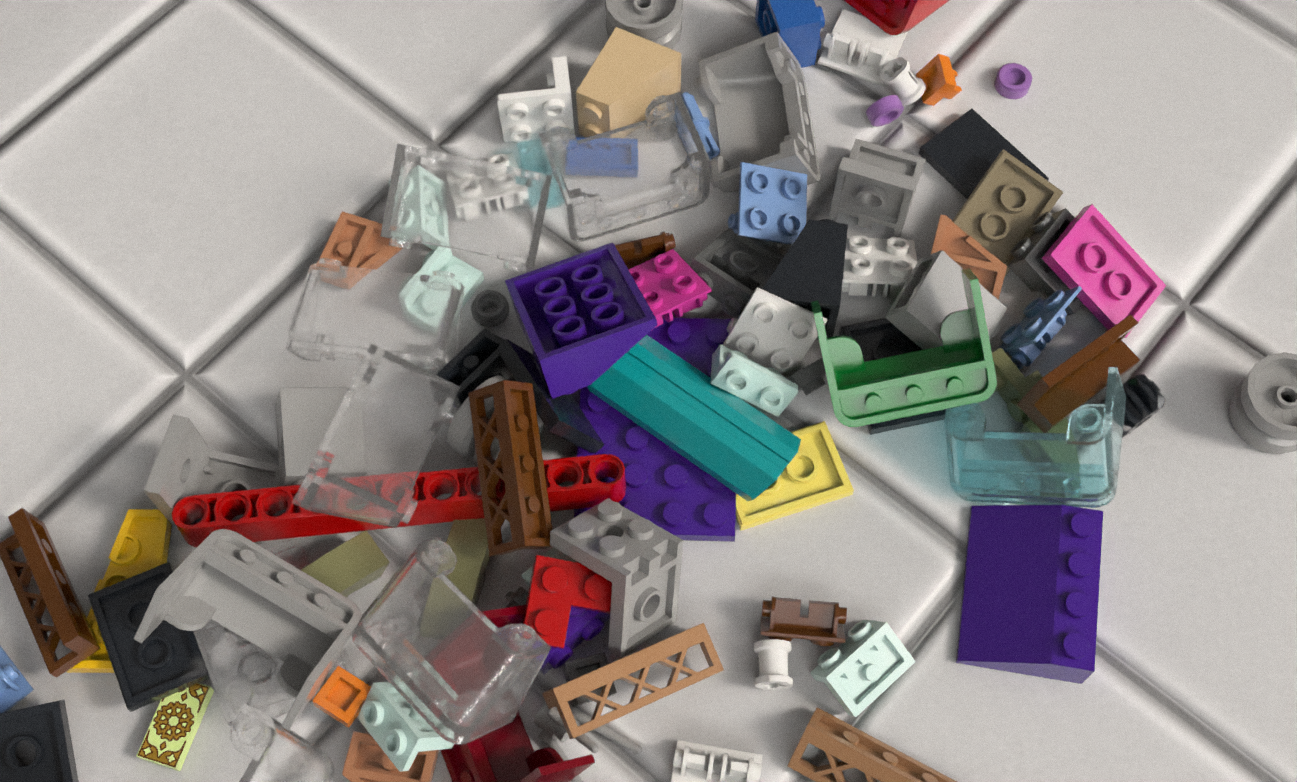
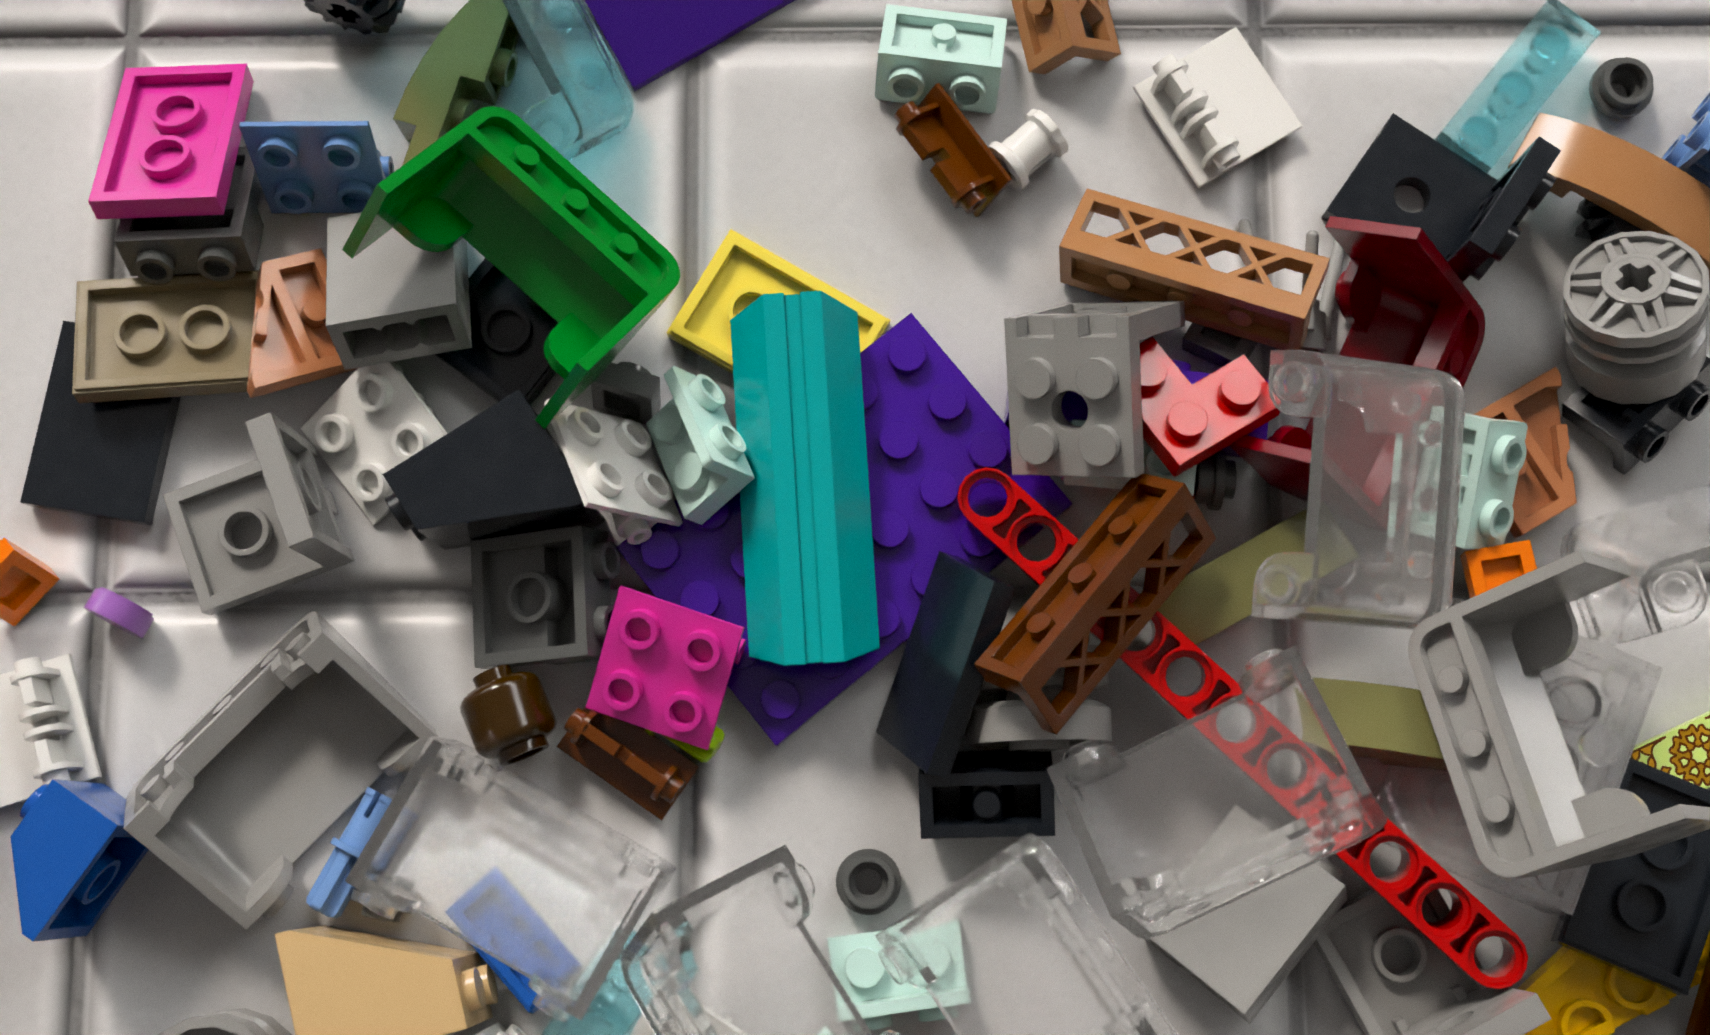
camera: 130 degrees left, 15 degrees up
(580, 316) = (806, 711): dark purple slope -> none
(698, 218) = (508, 715): none -> dark brown head
(770, 204) = (417, 625): medium blue hinge -> none
(902, 81) = (50, 621): white bush -> none
(1079, 377) = (361, 61): reddish brown fence -> none

